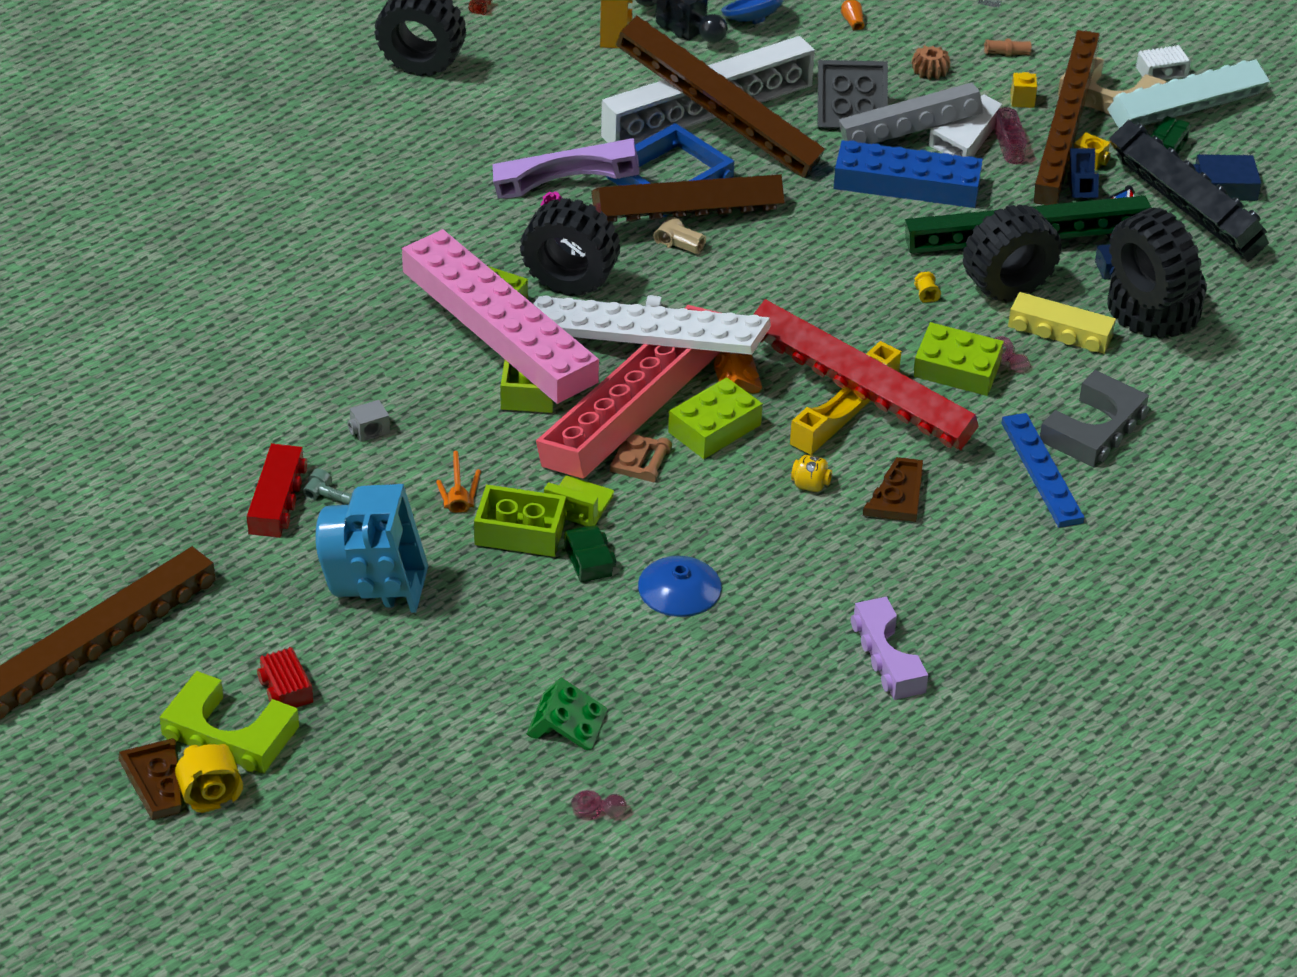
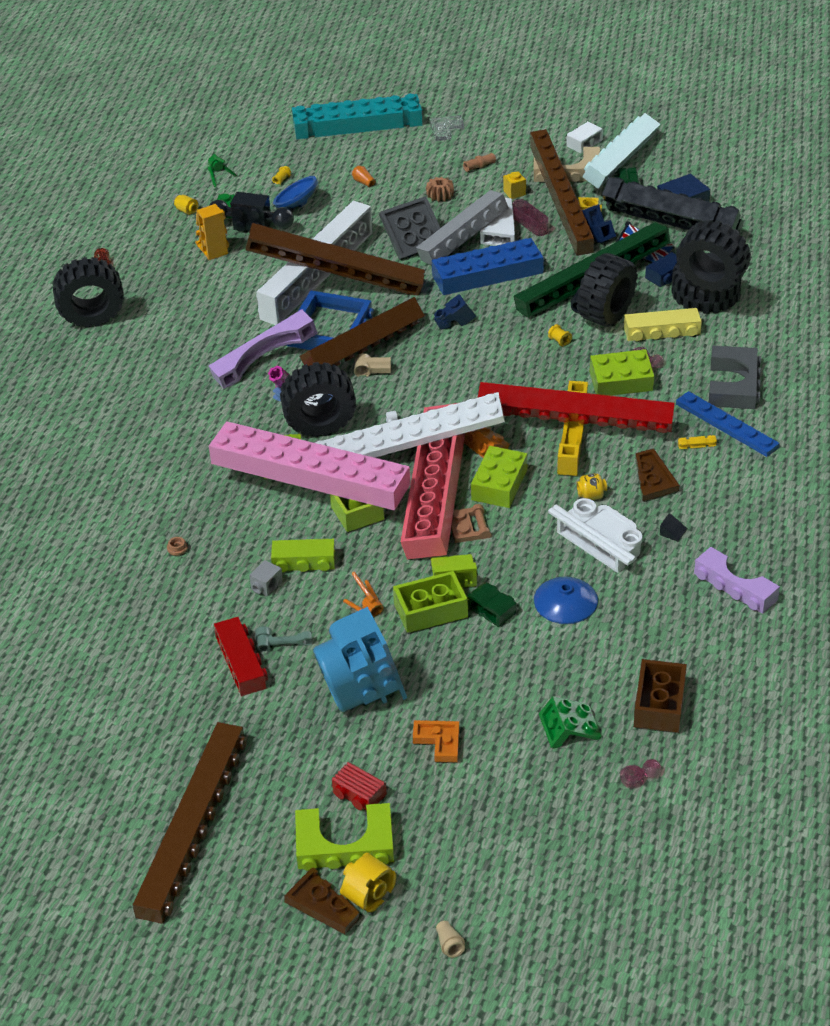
camera: 25 degrees left, 0 degrees up
(250, 877) = (450, 940): none -> tan cone
(307, 348) = (177, 546): none -> nougat plate
(417, 669) = (442, 734): none -> orange plate
(429, 413) = (303, 554): none -> lime brick
(686, 732) = (660, 695): none -> reddish brown brick
(777, 527) = (600, 532): none -> white brick
(826, 210) = (455, 309): none -> dark blue brick
(868, 559) = (672, 528): none -> black slope
(986, 475) = (697, 442): none -> yellow axle

